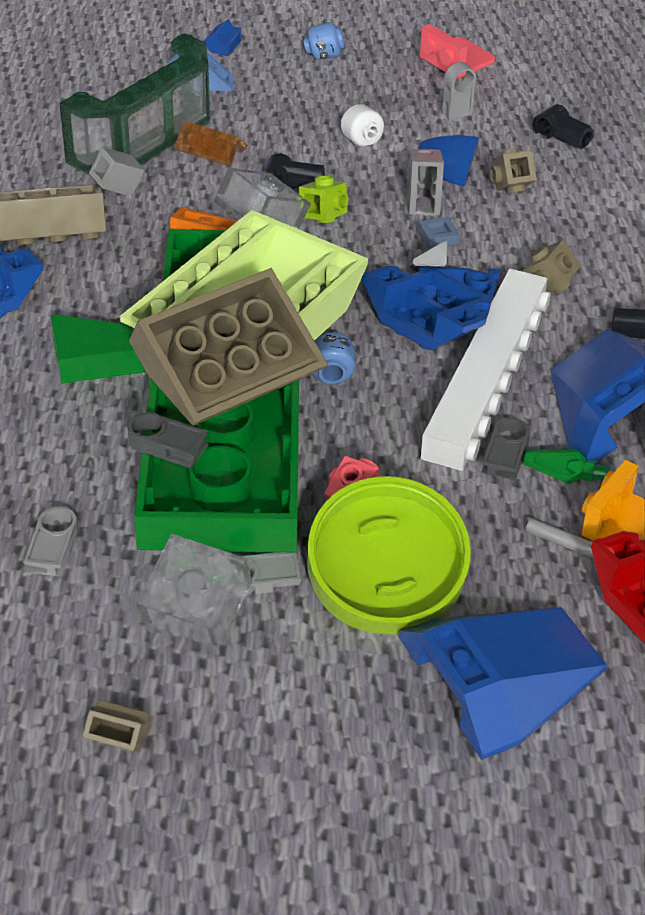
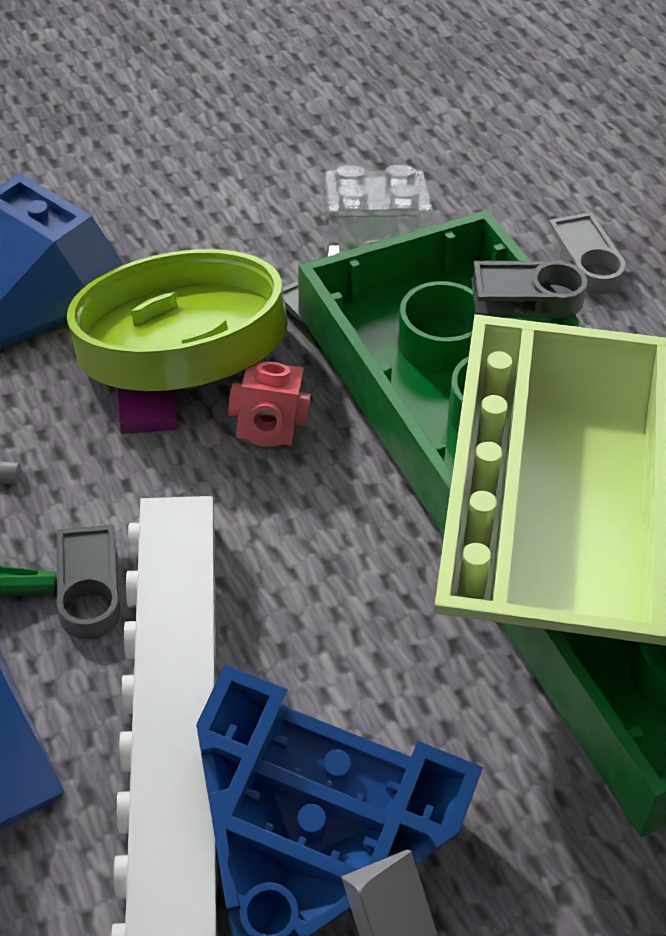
camera: 155 degrees right, 5 degrees up
(117, 726) = (365, 118): dark tan piece -> none
(226, 347) = (511, 303): dark tan slope -> none
(339, 355) = (432, 636): medium blue head -> none

